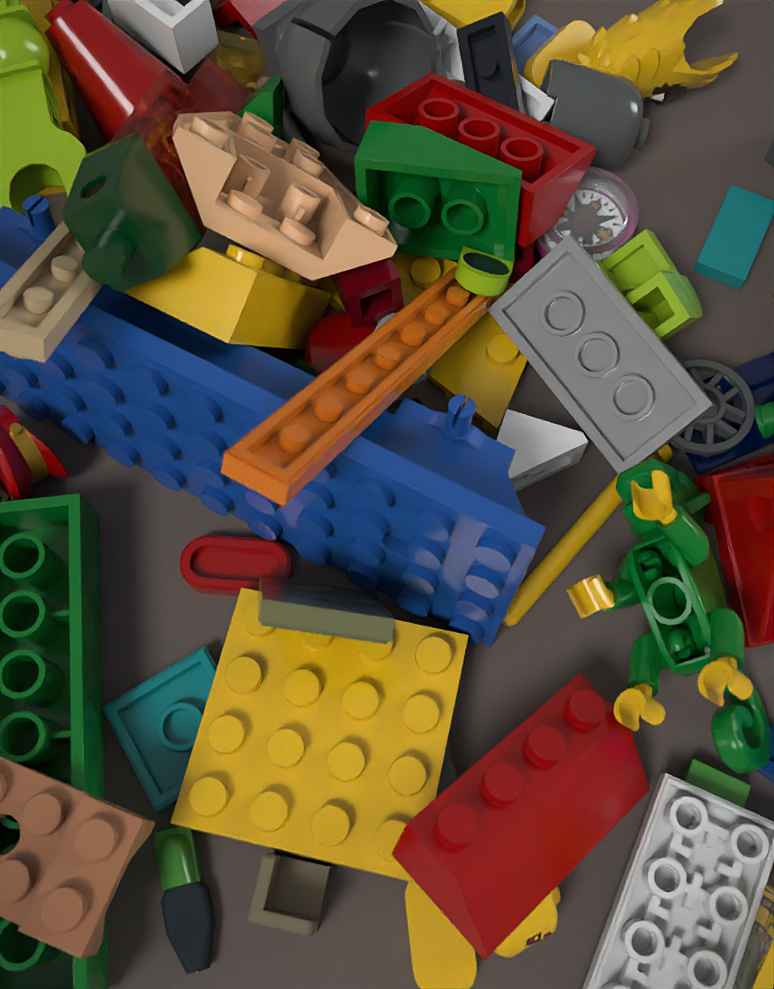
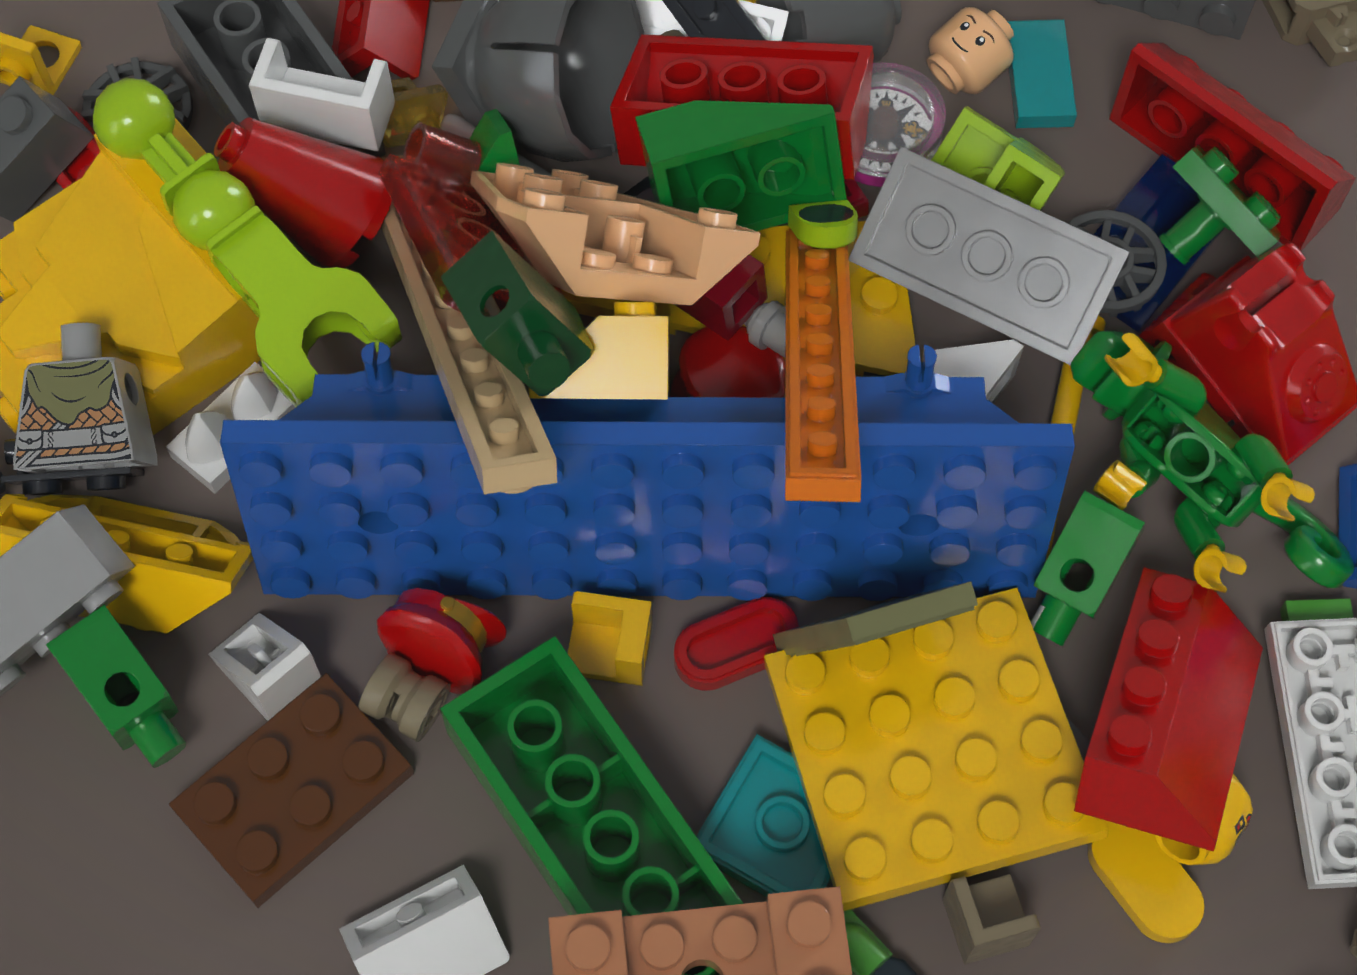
camera: 30 degrees left, 5 degrees down
(144, 517) = (610, 637): none -> yellow panel
(552, 638) = (1094, 537): none -> green torso
(687, 193) = (971, 50): none -> light nougat head

